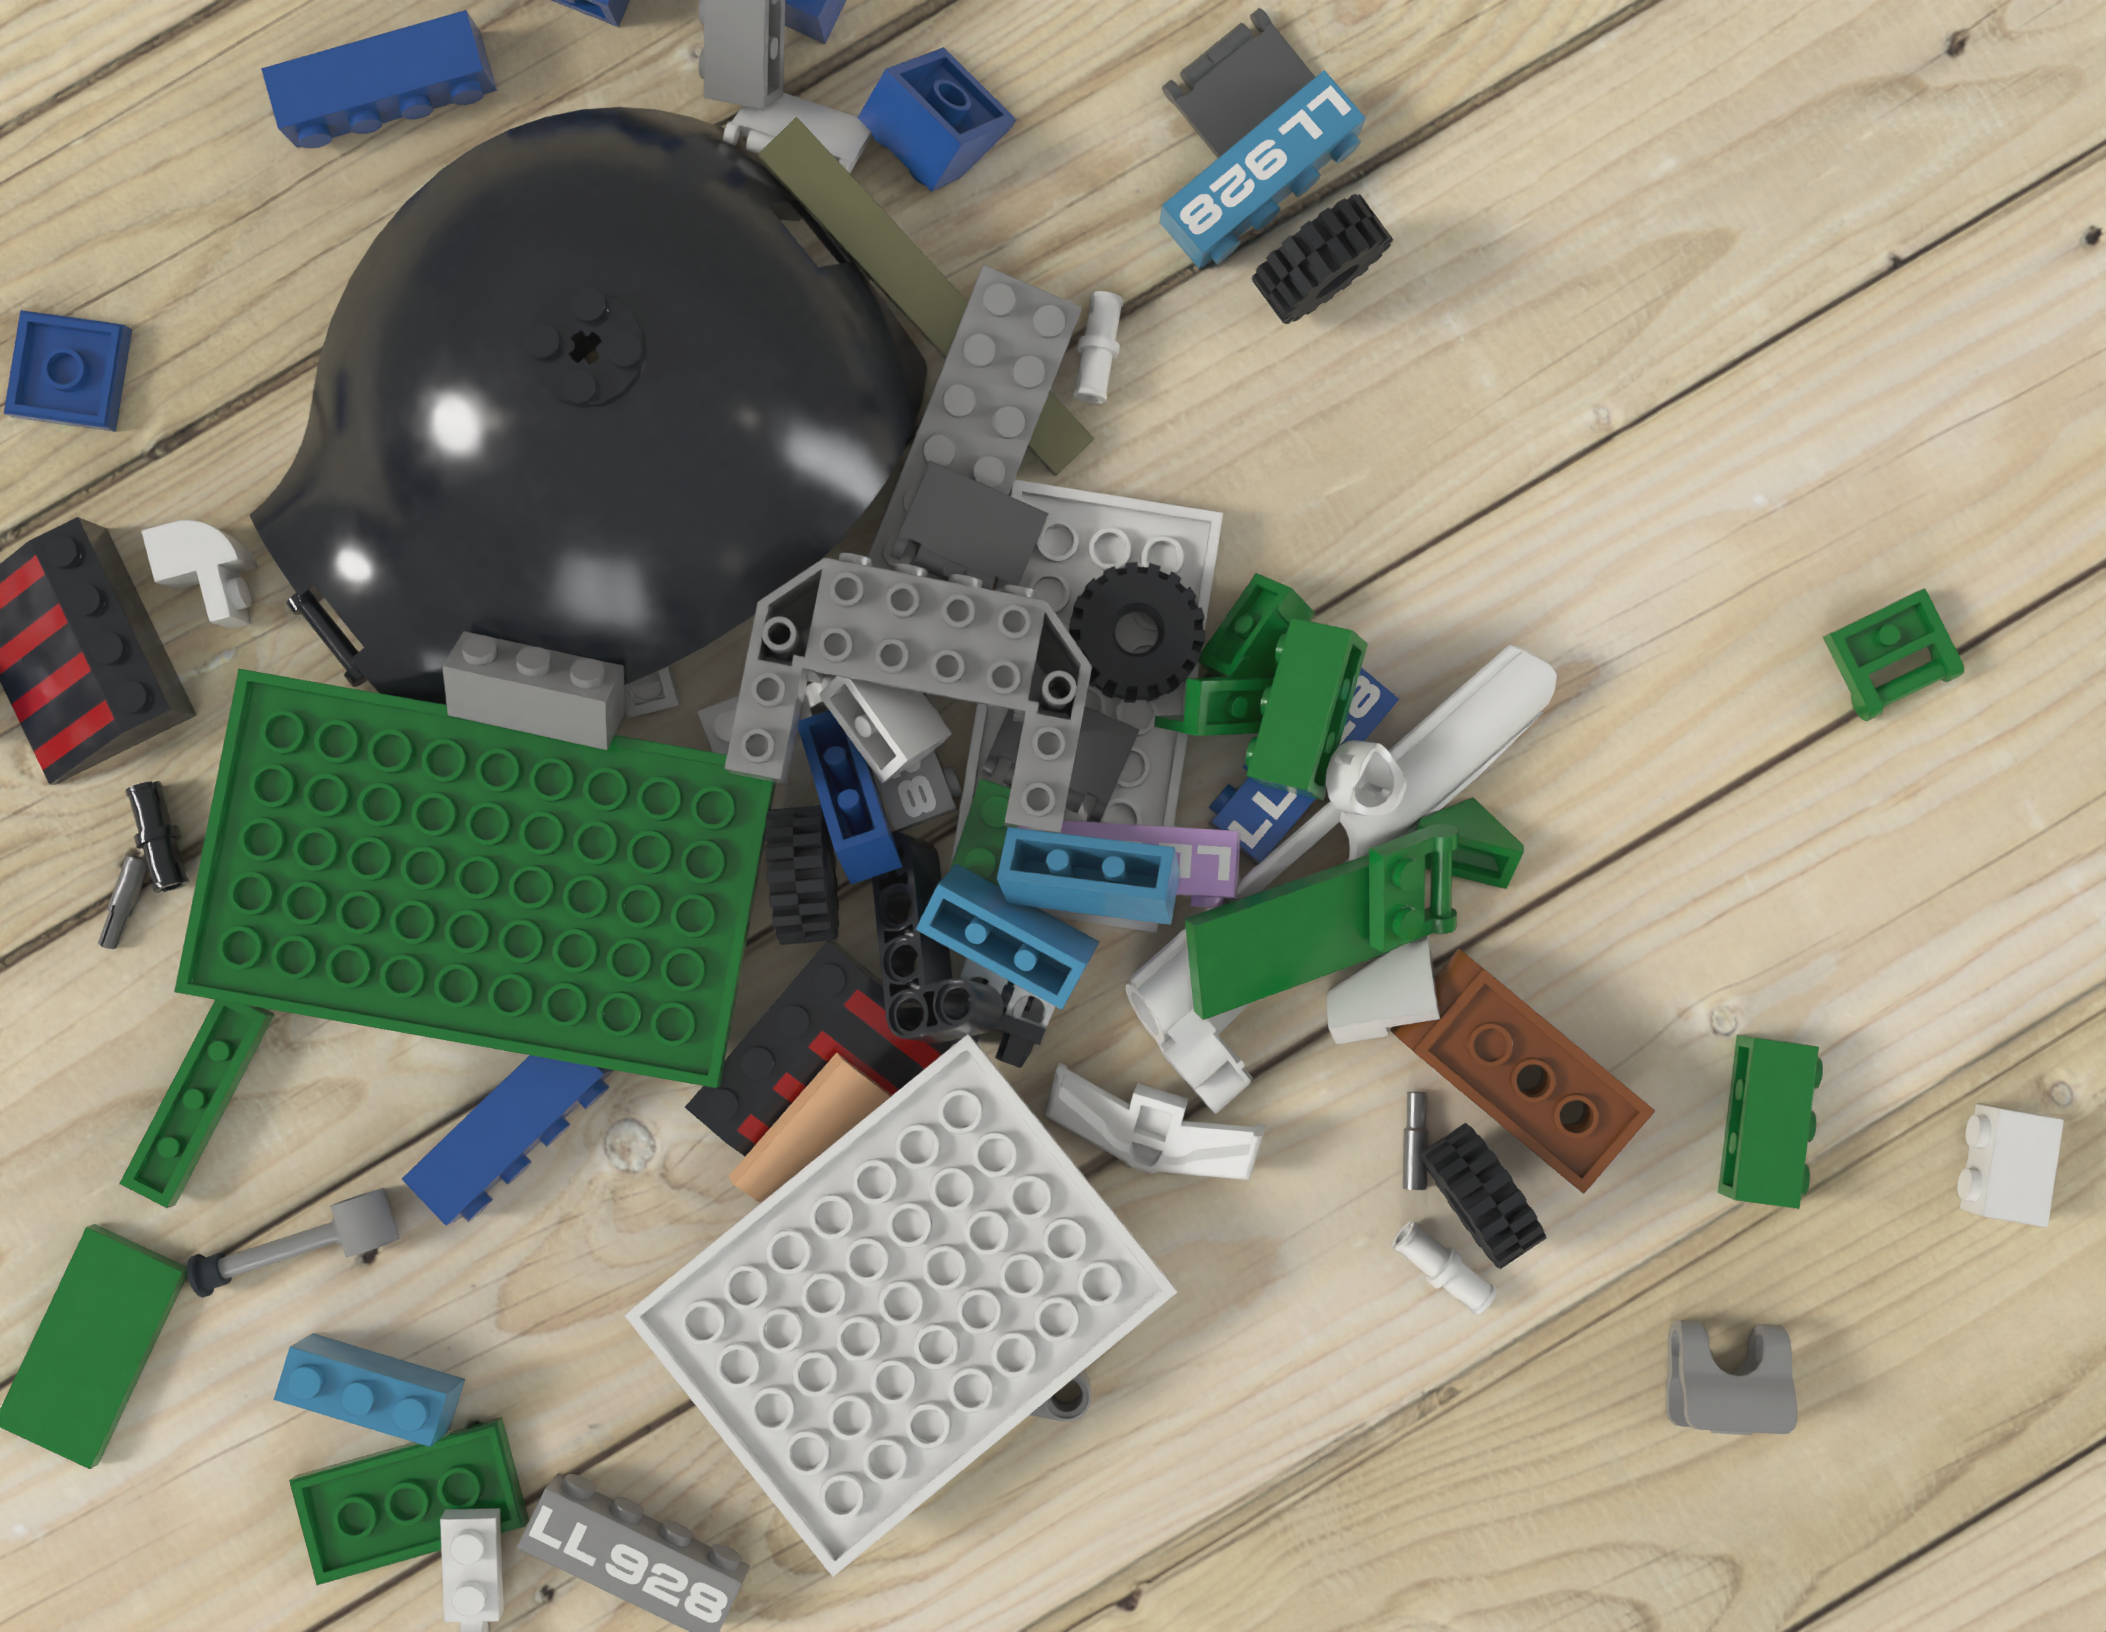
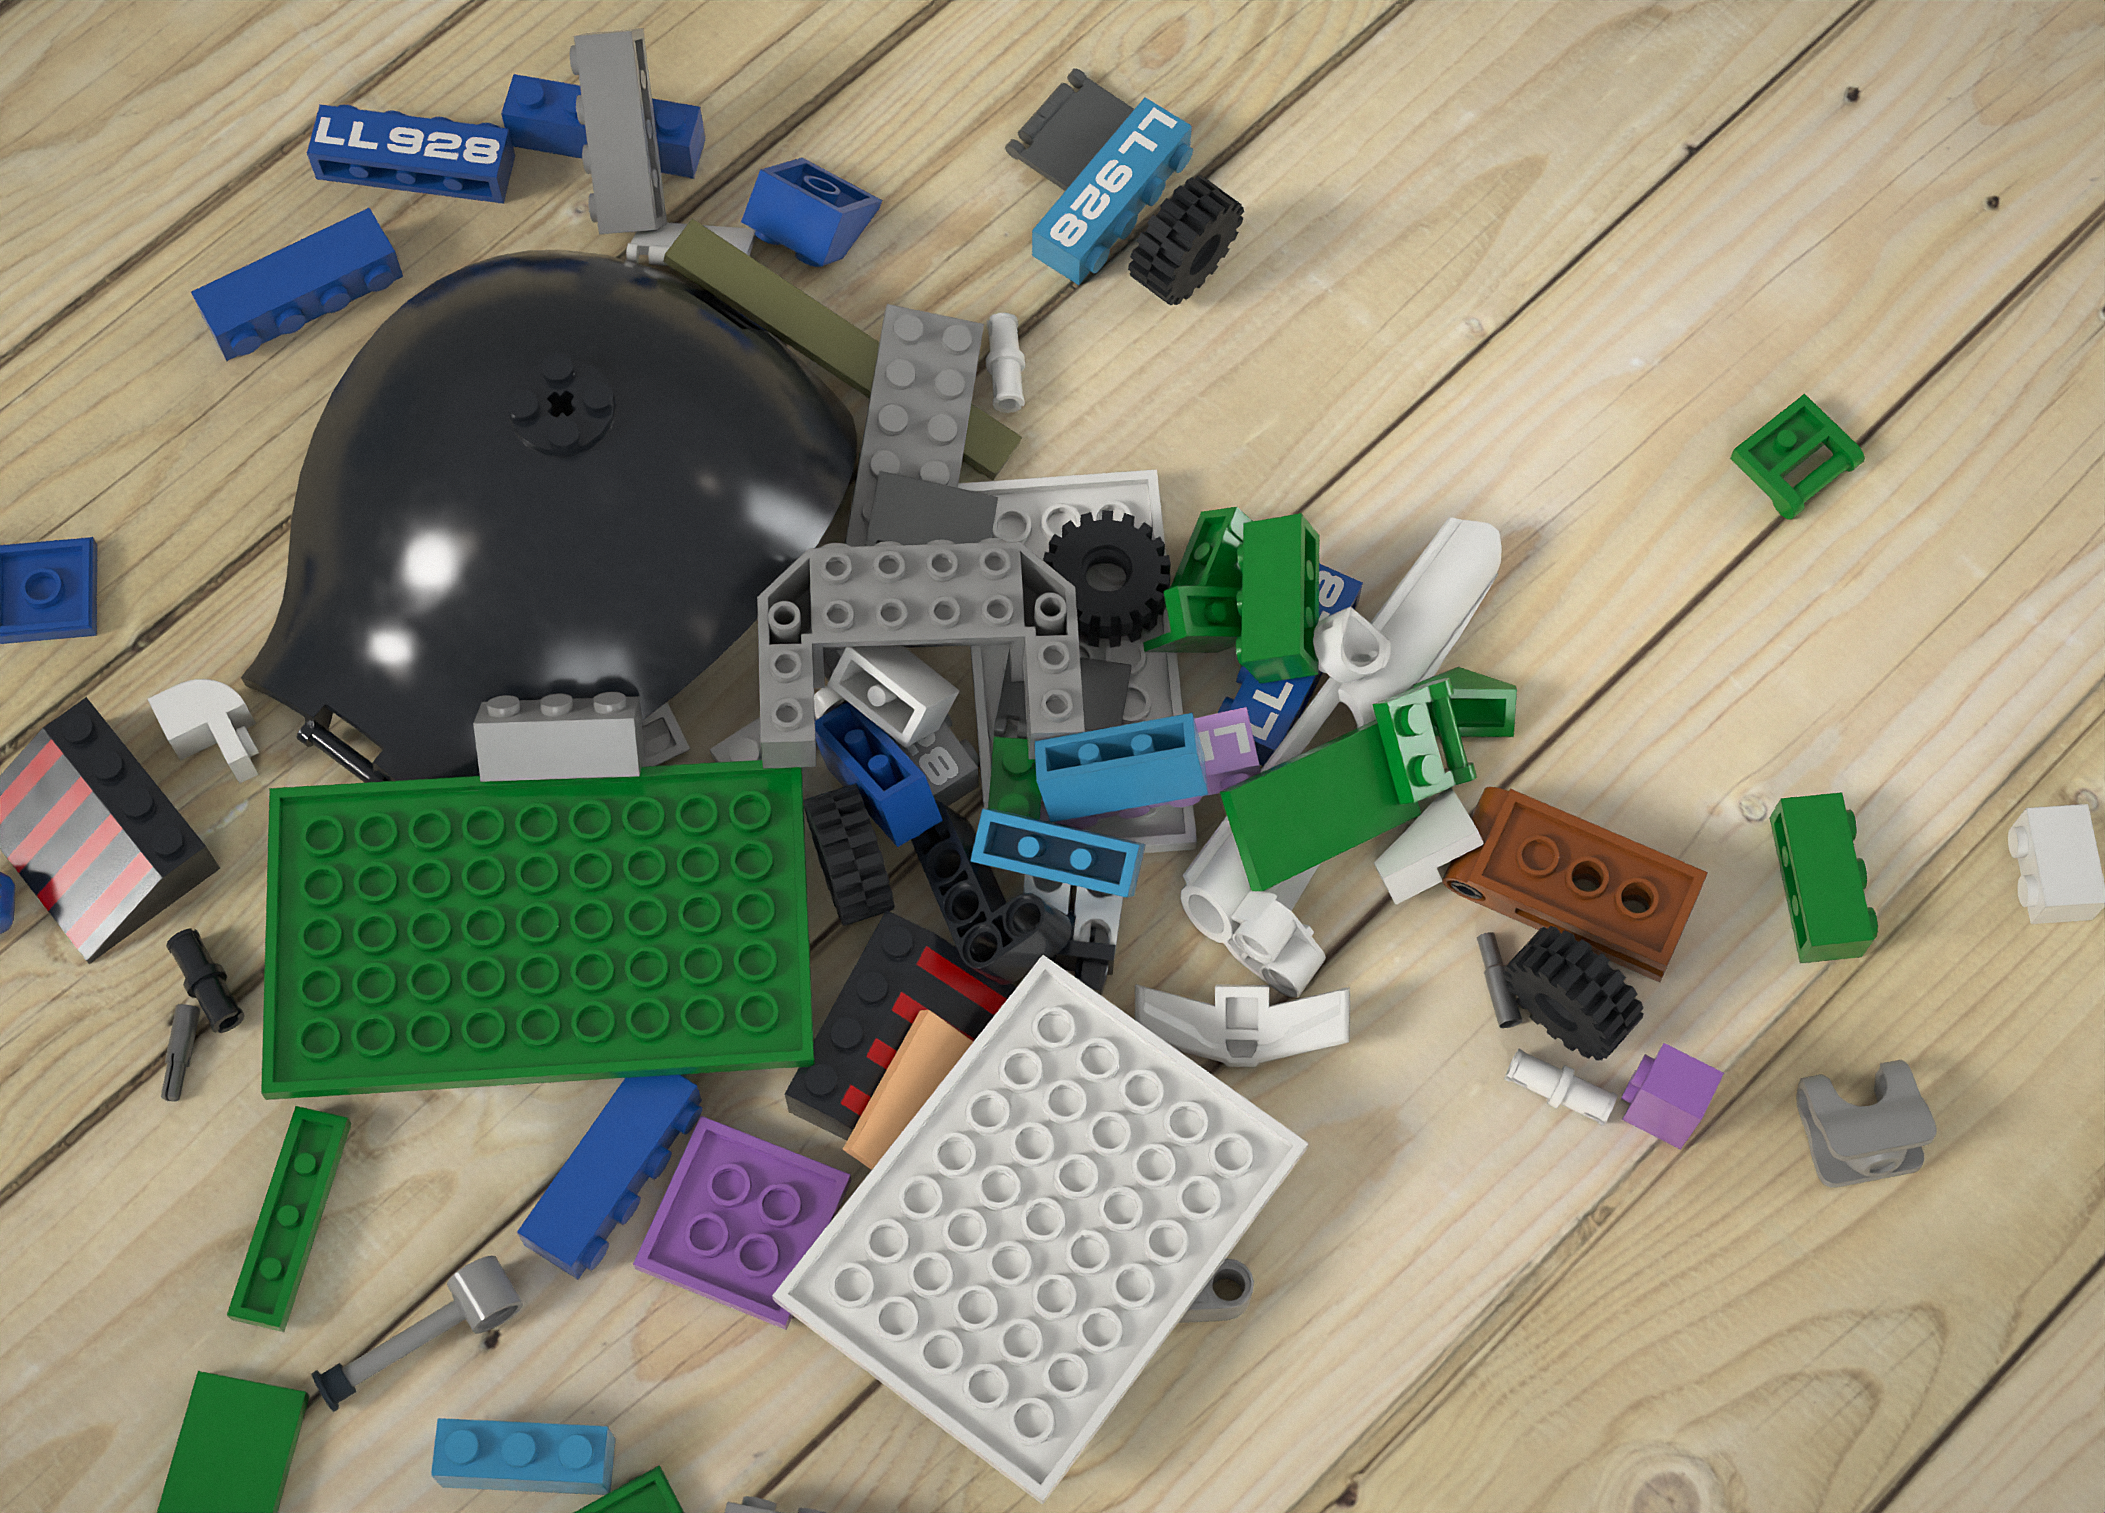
camera: 15 degrees left, 20 degrees down
(623, 1206) = (739, 1219): none -> medium lavender plate
(1548, 1318) = (1670, 1094): none -> medium lavender piece

